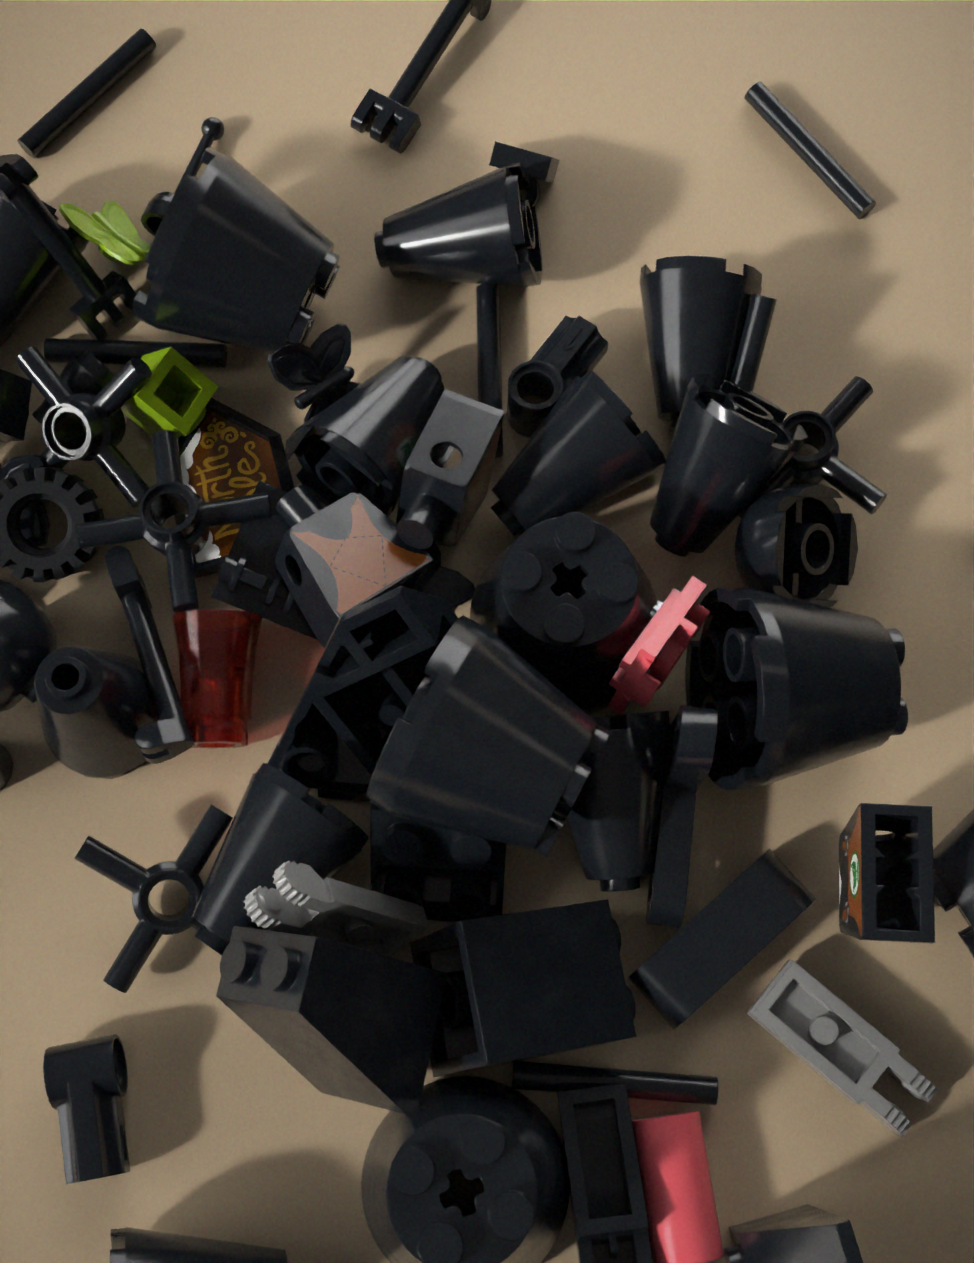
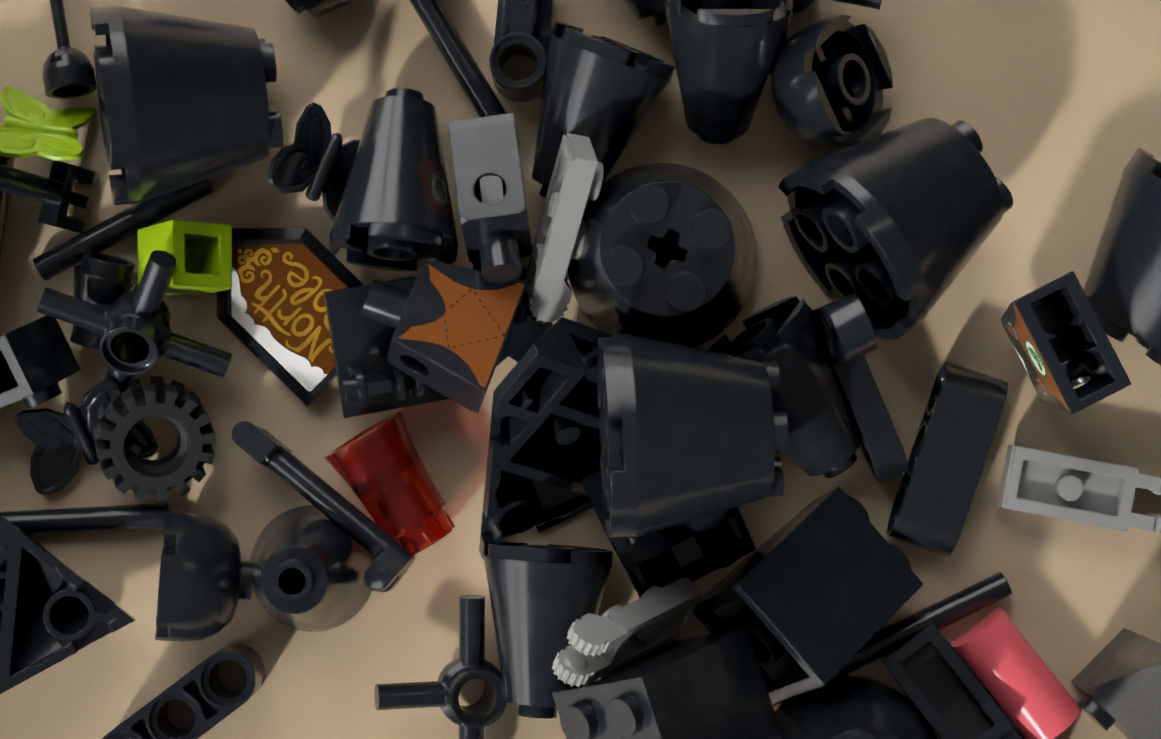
camera: 35 degrees left, 15 degrees up
(178, 542) = (255, 355): black bar -> none
(488, 537) = (560, 229): none -> light grey hinge
(659, 646) = (768, 251): coral piece -> none

